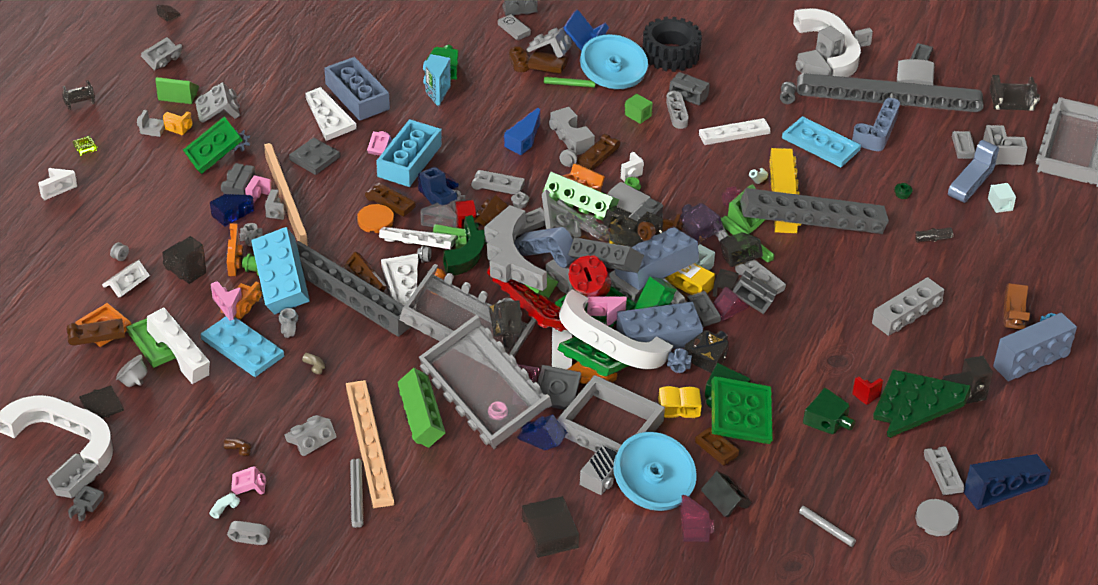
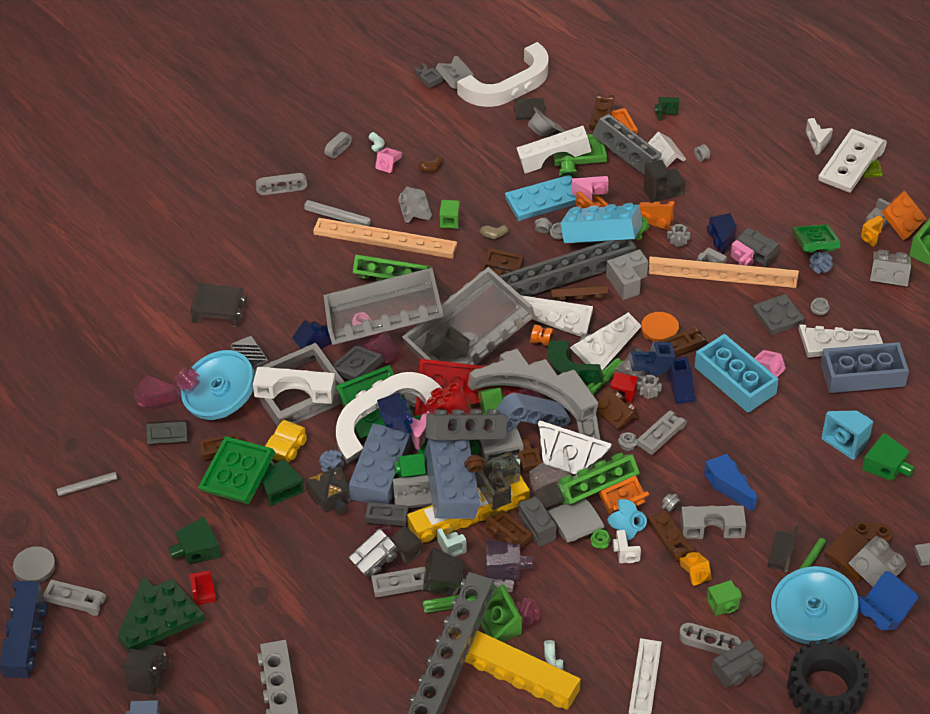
camera: 120 degrees right, 5 degrees up
(56, 149) = (872, 148): none -> white hinge
(60, 296) = (667, 106): none -> dark green bracket
(144, 294) = (625, 143): none -> dark grey brick
(147, 104) = (903, 215): none -> orange plate
(196, 334) = (567, 166): none -> bright green brick
(291, 133) = (819, 306): none -> light grey plate
(314, 395) = (449, 214): none -> bright green brick
(334, 247) = (626, 273): none -> light grey brick
(339, 555) = (293, 178): none -> light grey beam
(361, 342) = (502, 261): none -> reddish brown slope
(568, 91) = (782, 550): none -> clear smoke panel
(603, 170) = (625, 517): none -> medium azure plate
(615, 312) = (394, 412): none -> clear blue slope
(615, 385) = (272, 381): none -> white arch
(619, 129) = (697, 567): none -> light orange bracket
(670, 488) = (187, 379): none -> clear pink gear

